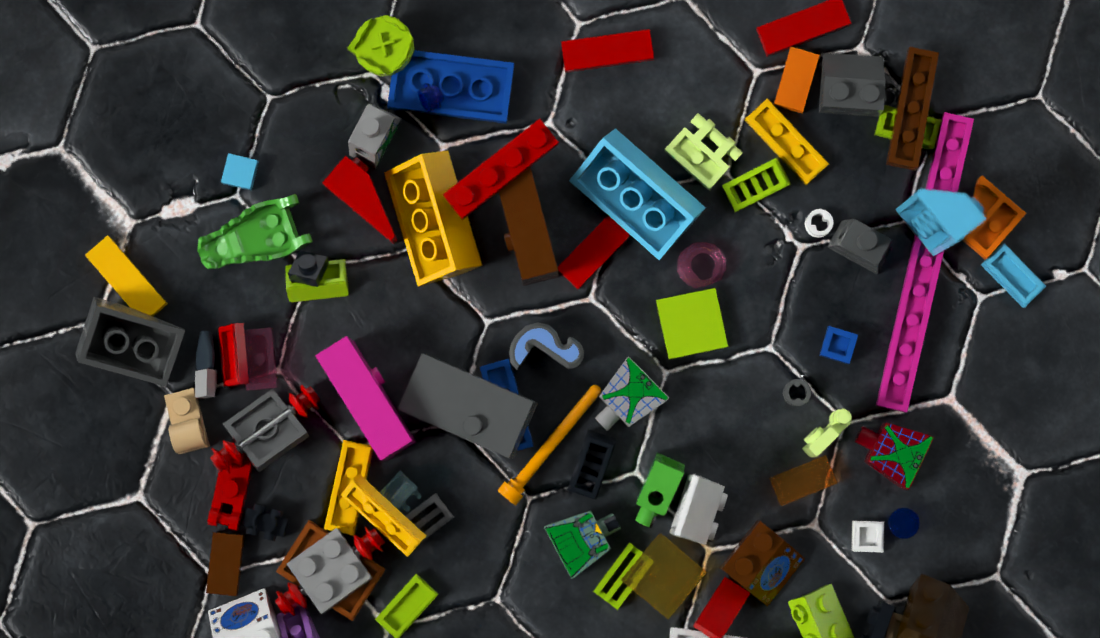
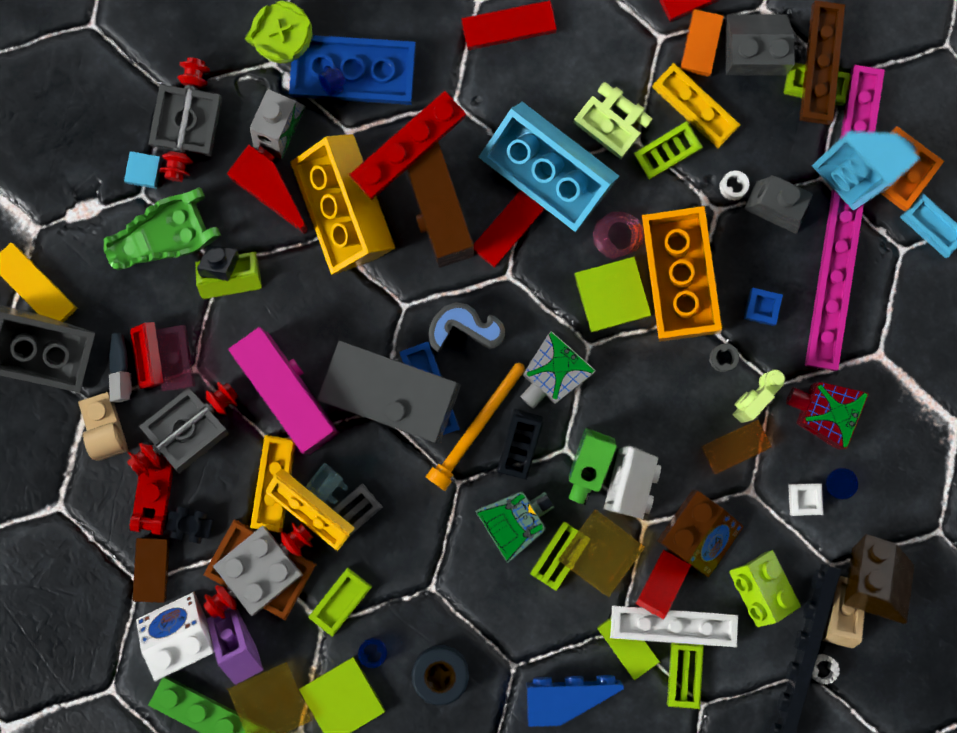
camera: 10 degrees left, 0 degrees up
(284, 125) = (185, 120): none -> dark grey plate
(759, 308) = (681, 274): none -> light orange brick

